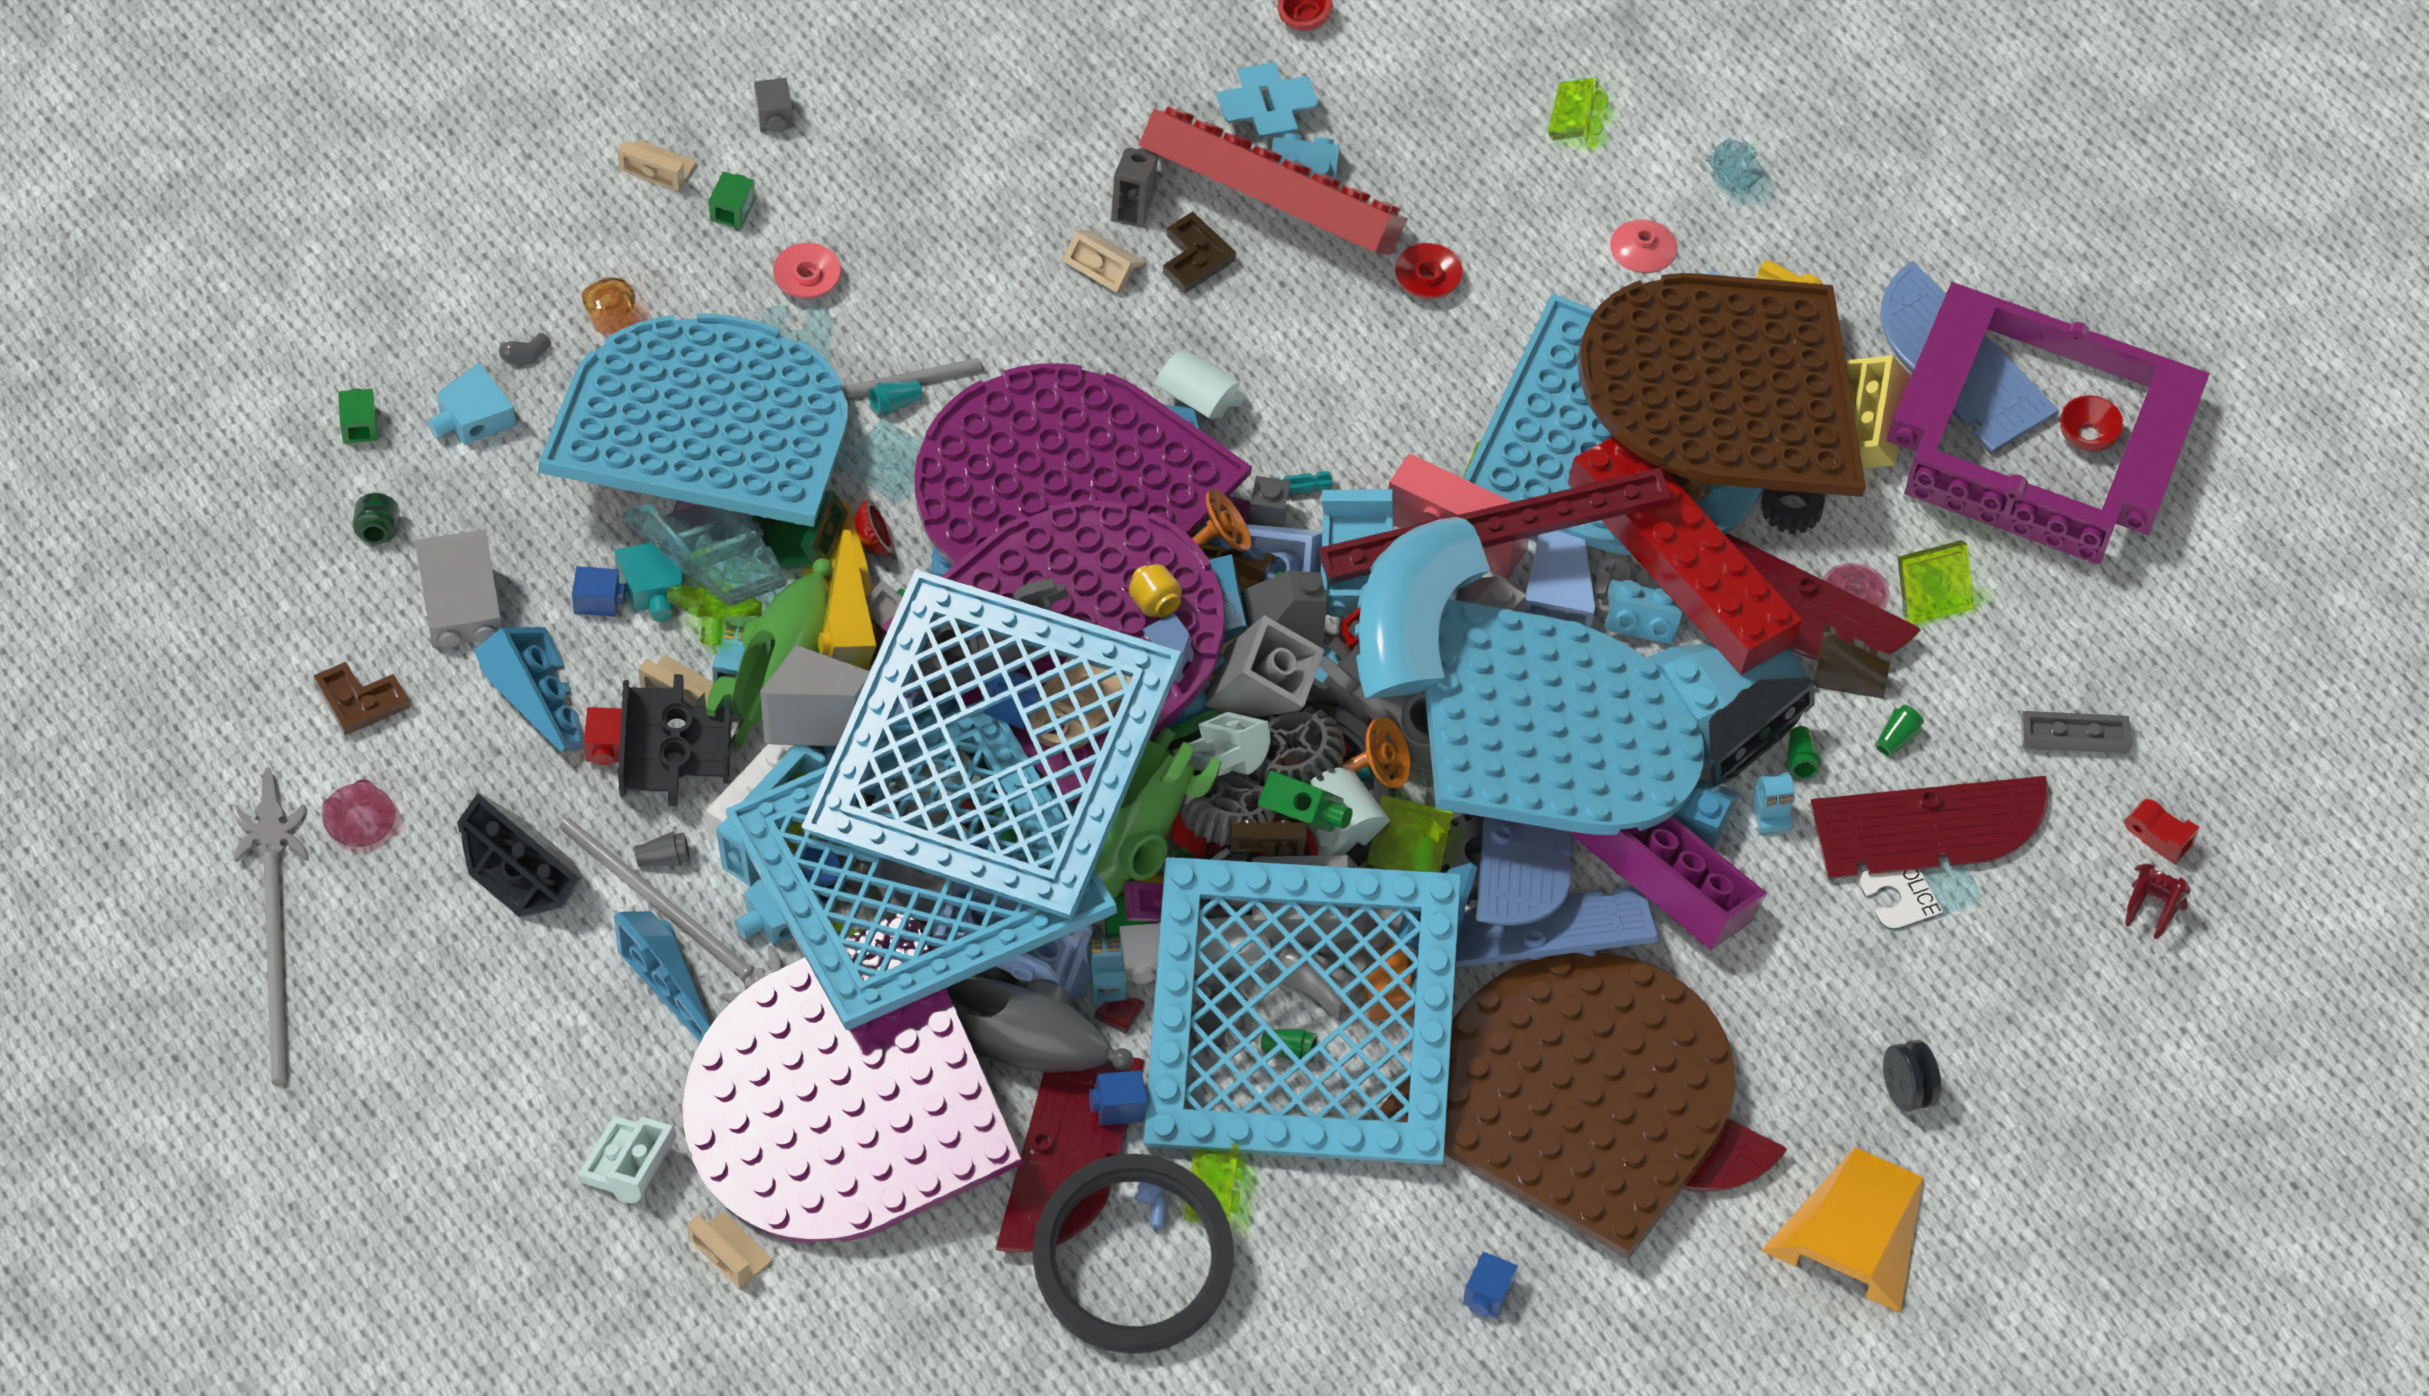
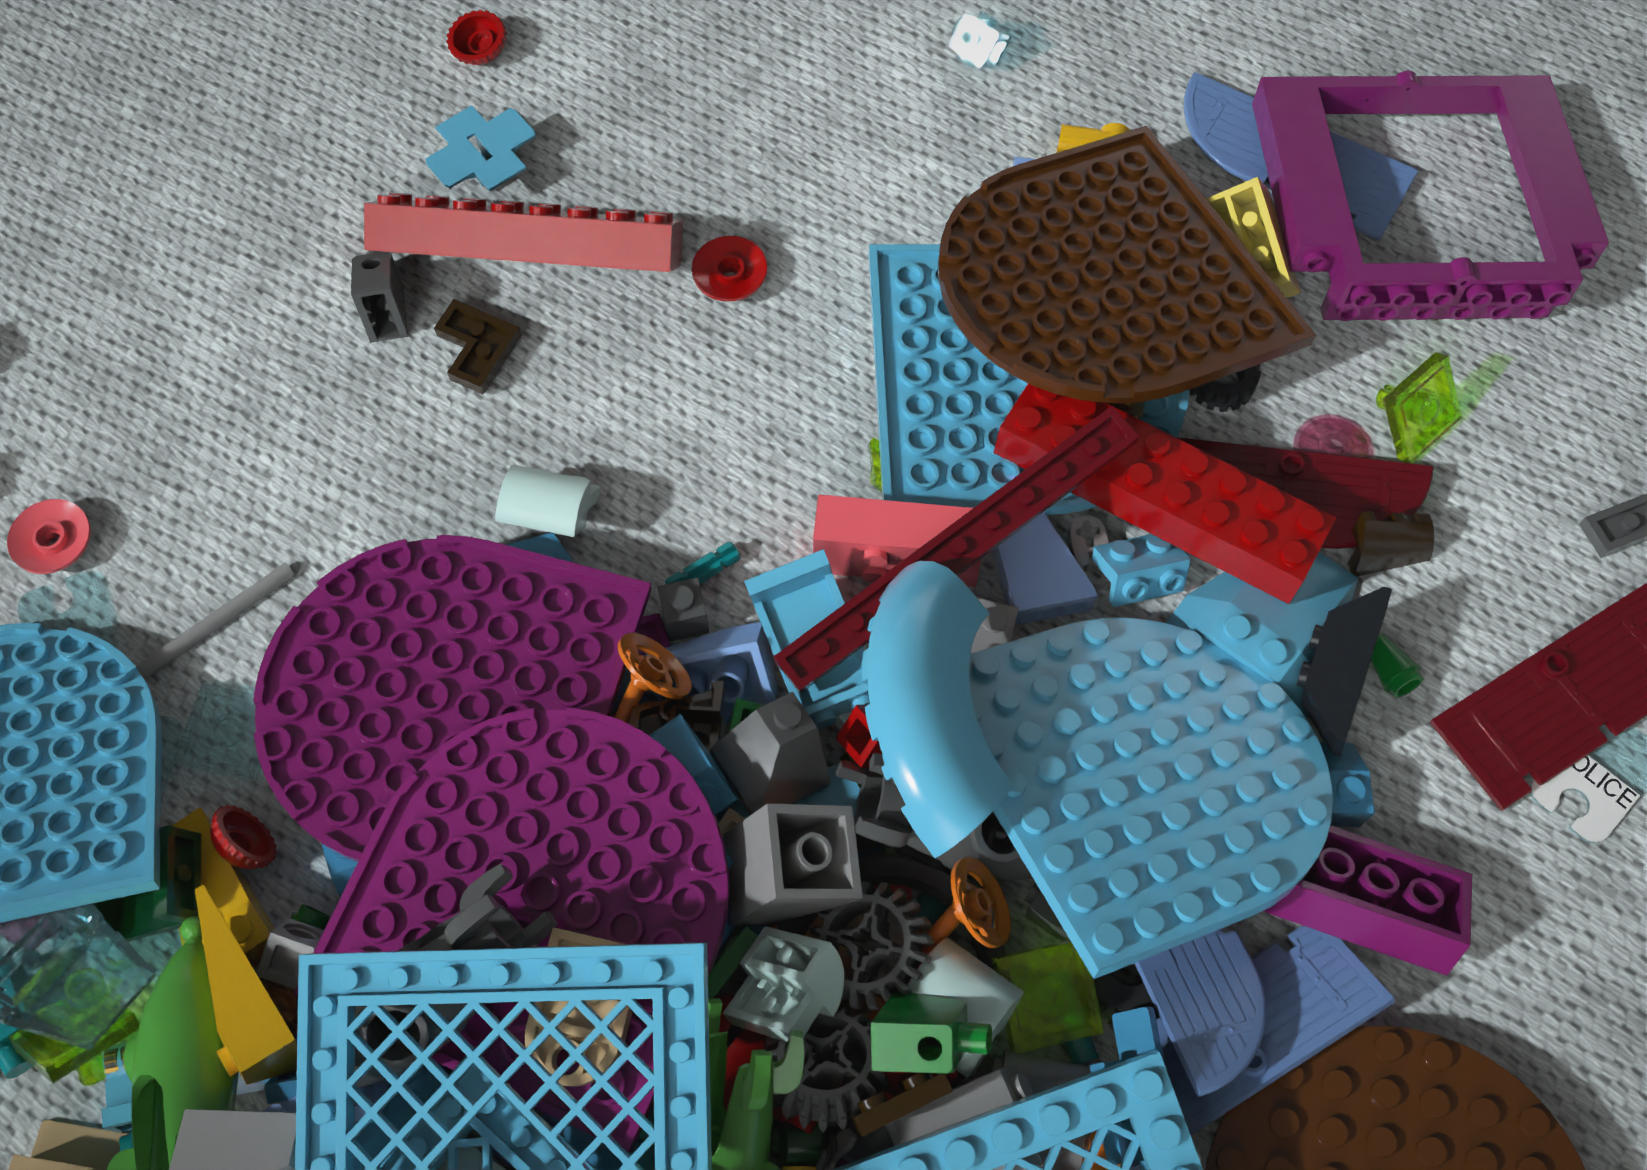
camera: 20 degrees left, 10 degrees up
(892, 396) = (205, 650): teal cone -> none
(1007, 709) = (498, 1055): blue brick -> none
(1101, 259) = (378, 391): tan panel -> none
(1155, 590) = (617, 822): yellow head -> none
(1171, 634) = (666, 886): medium blue slope -> none
(1318, 155) = (558, 187): medium azure bracket -> none
(1578, 111) = (797, 43): clear neon green bracket -> none
(1639, 254) = (927, 168): coral dish -> none
(1773, 803) = (1405, 746): medium azure leg -> none
(1899, 730) = (1474, 594): green cone -> none
(2094, 413) = (1467, 162): red piece -> none

